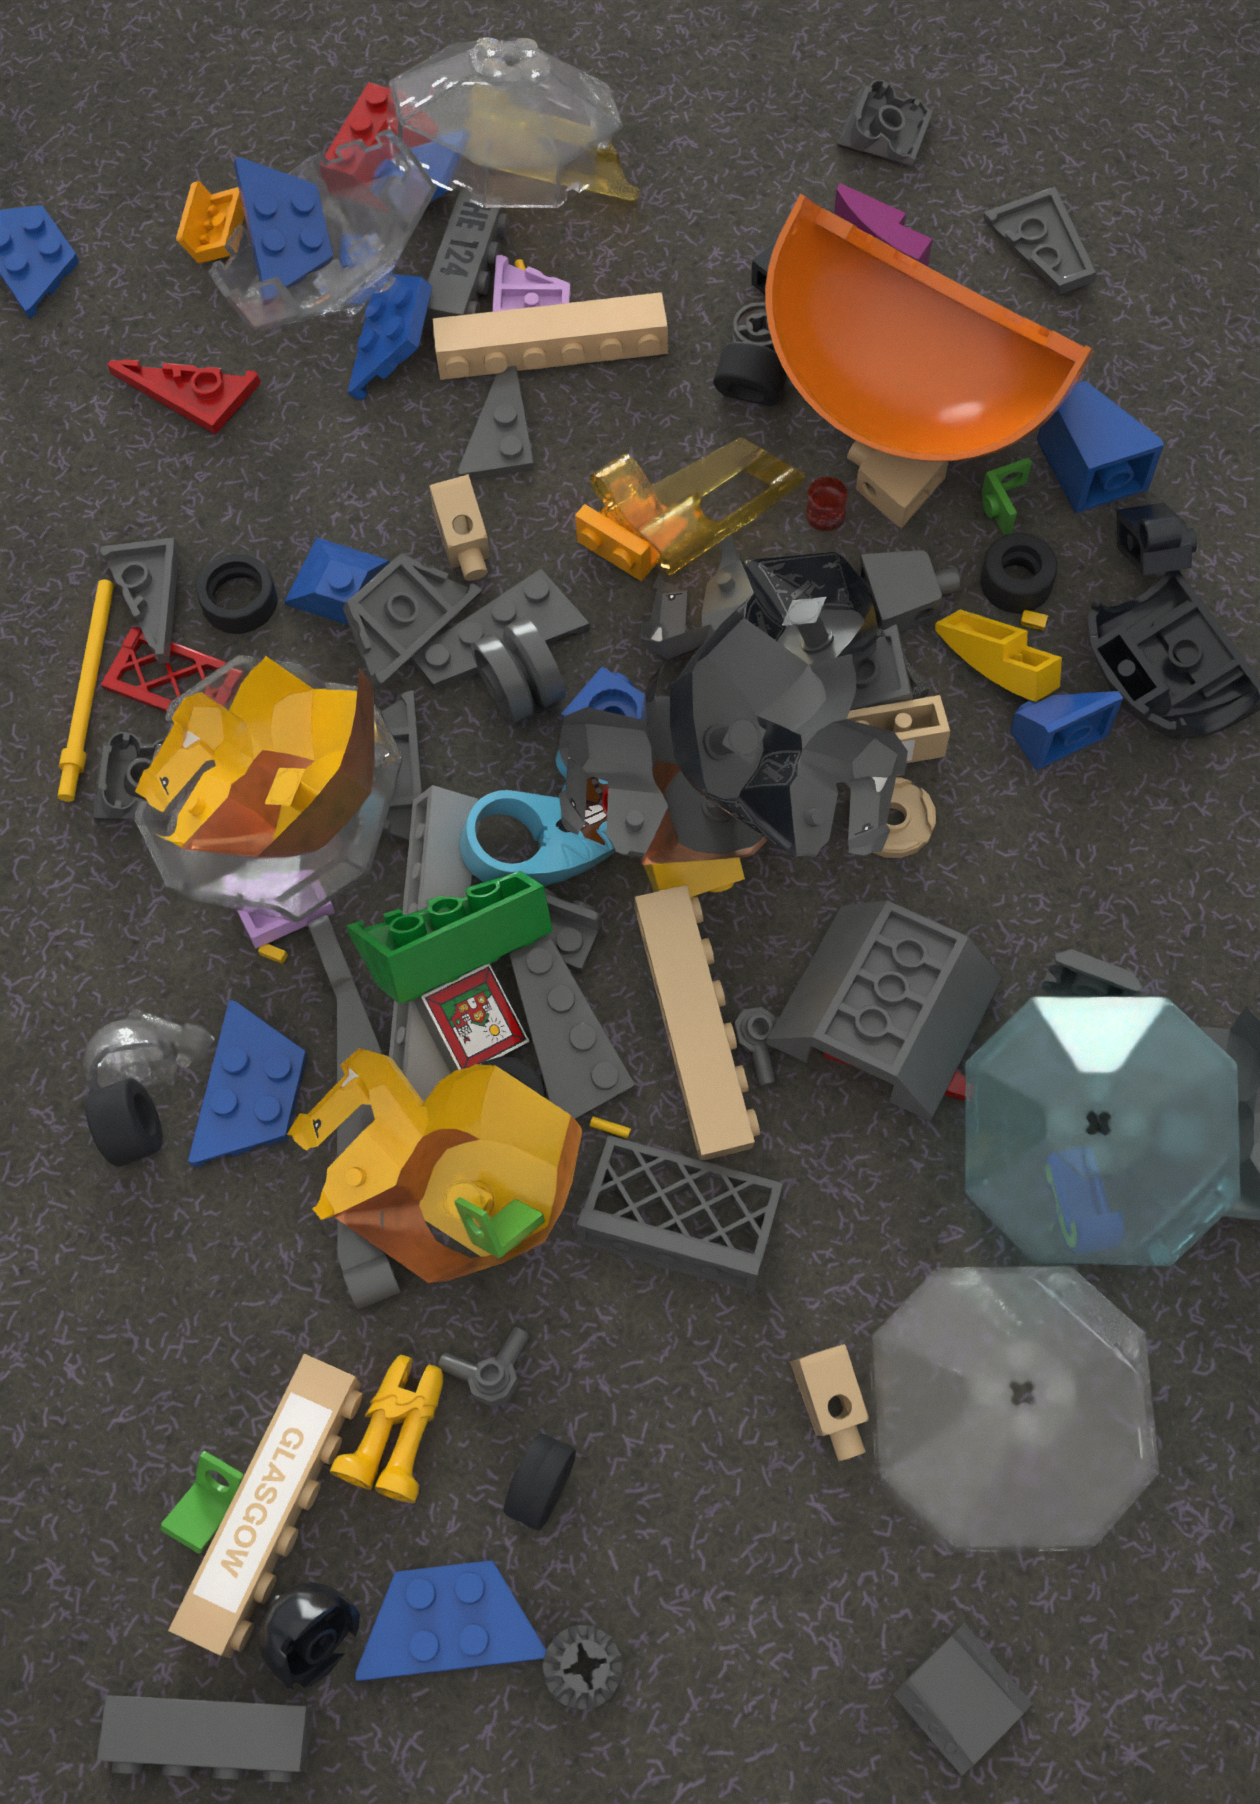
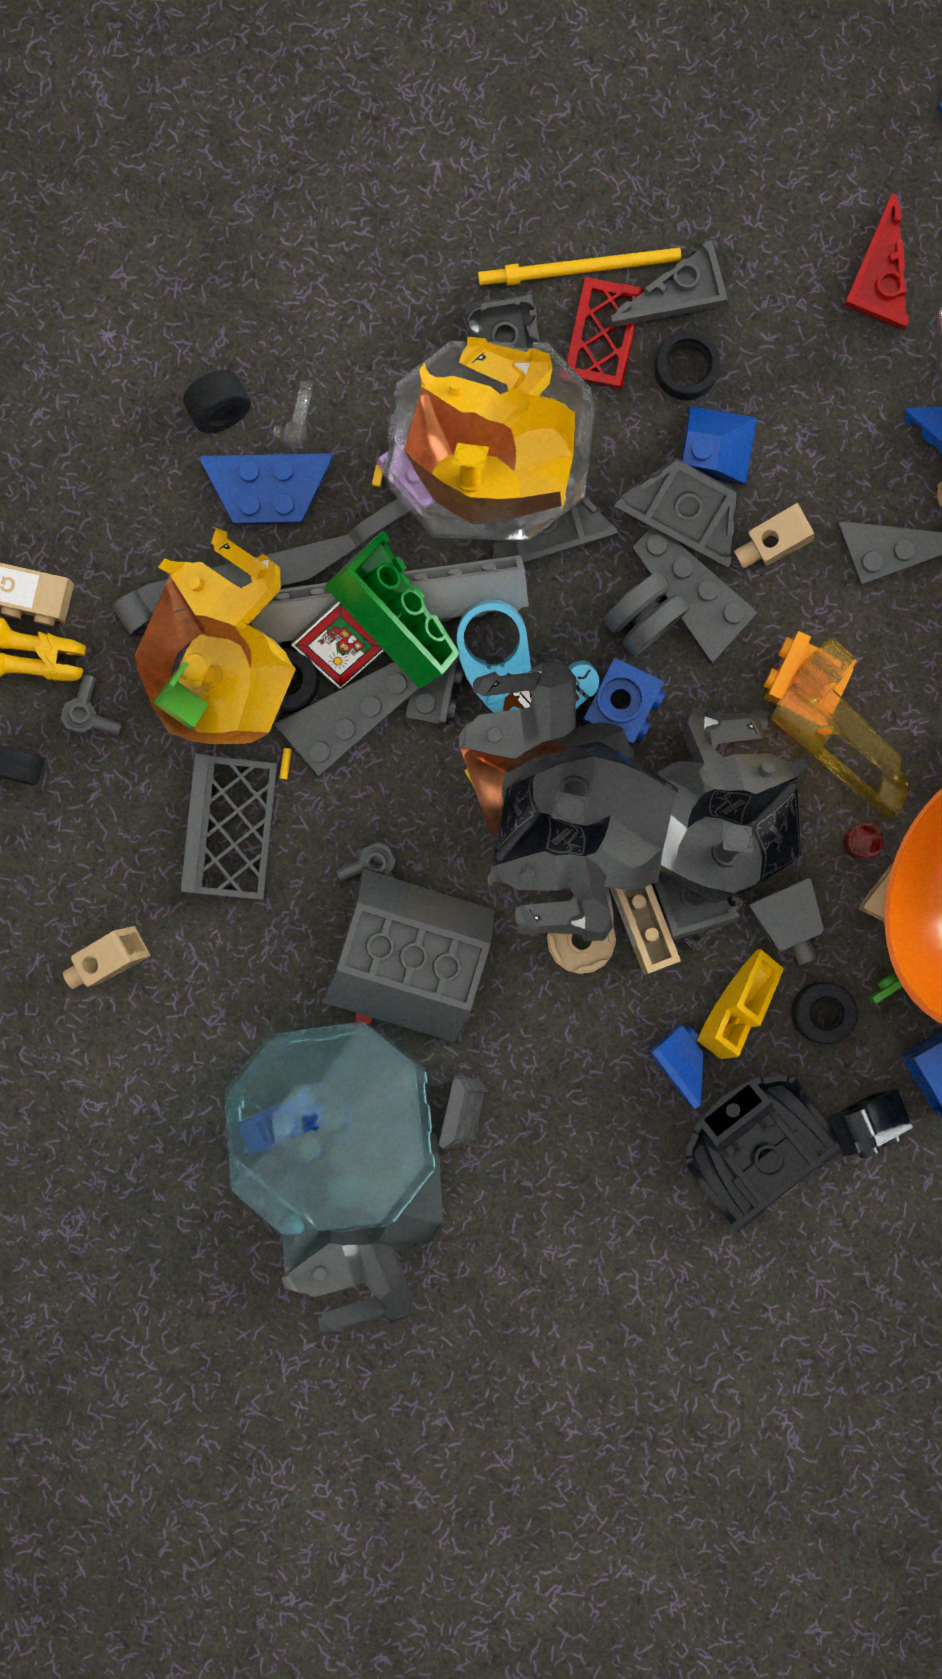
camera: 80 degrees right, 20 degrees up
(129, 1050) = (268, 384): clear cylinder -> none
(694, 1023) = (370, 810): tan brick -> none
(1002, 1472) = (167, 1079): clear windscreen -> none
(1033, 620) = (785, 1031): yellow piece -> none

